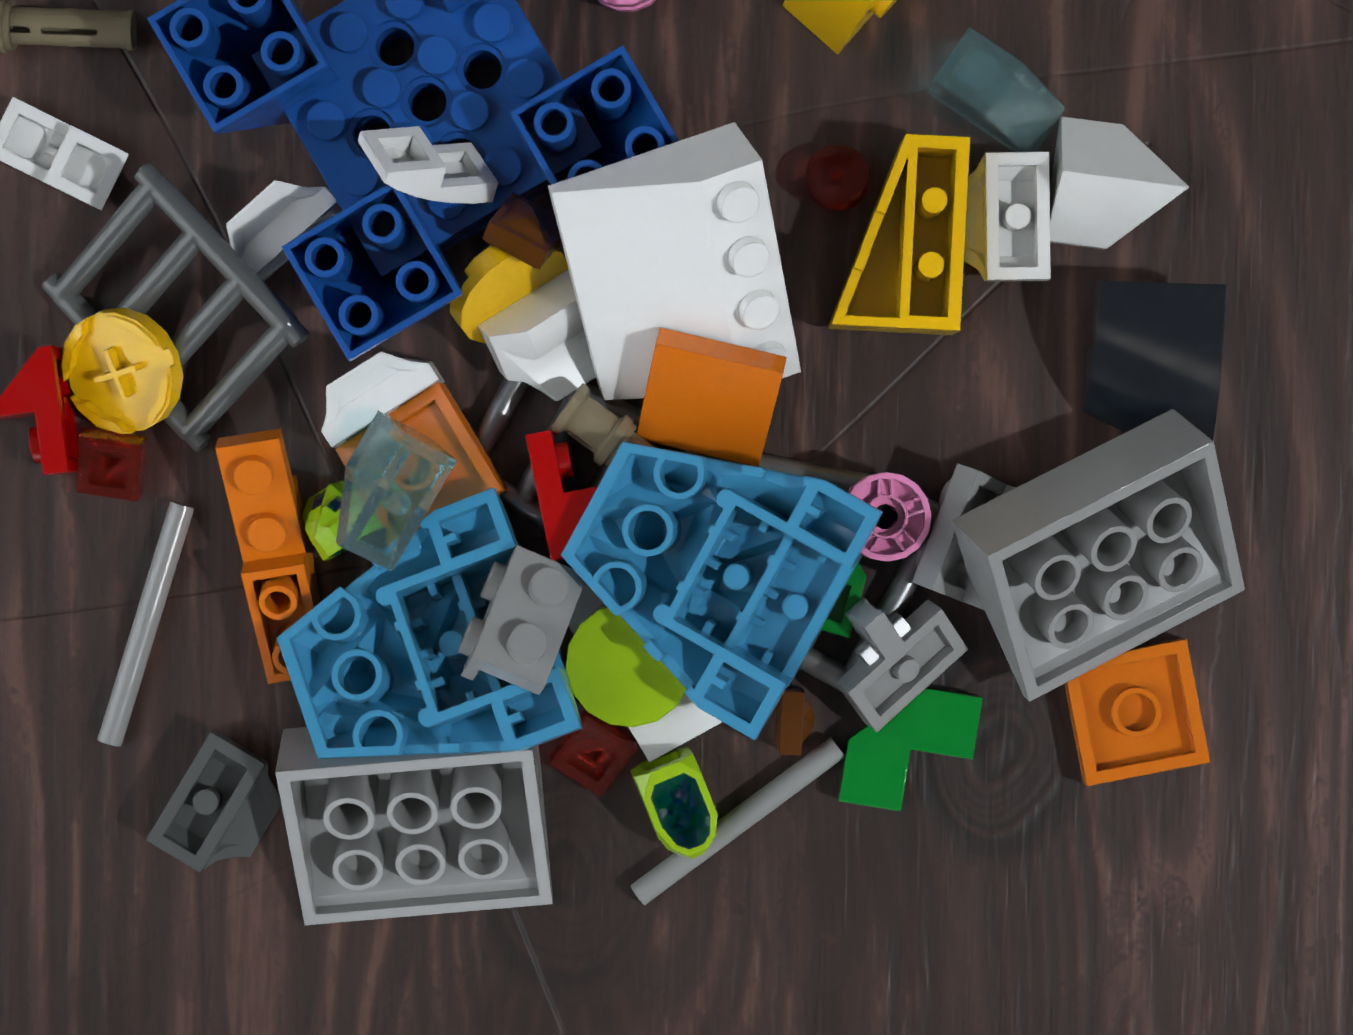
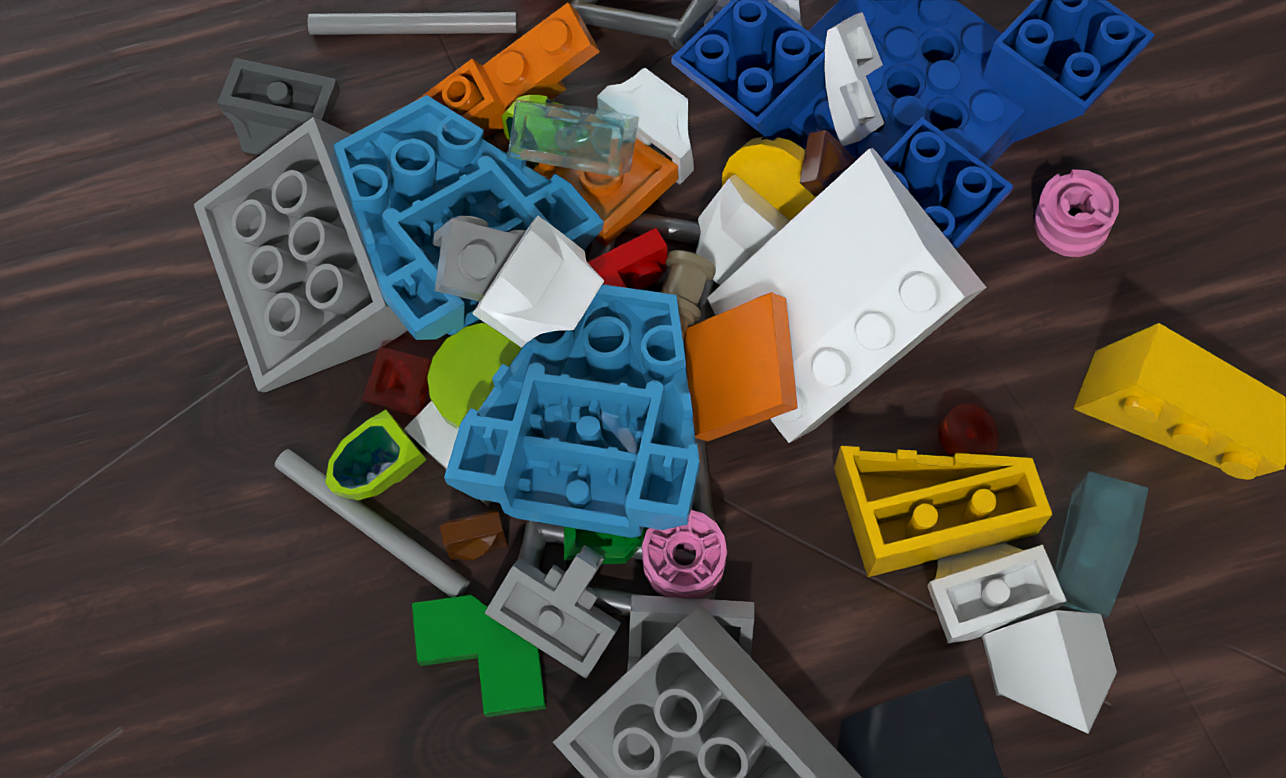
camera: 75 degrees right, 20 degrees down
(574, 582) = (540, 286): none -> white slope

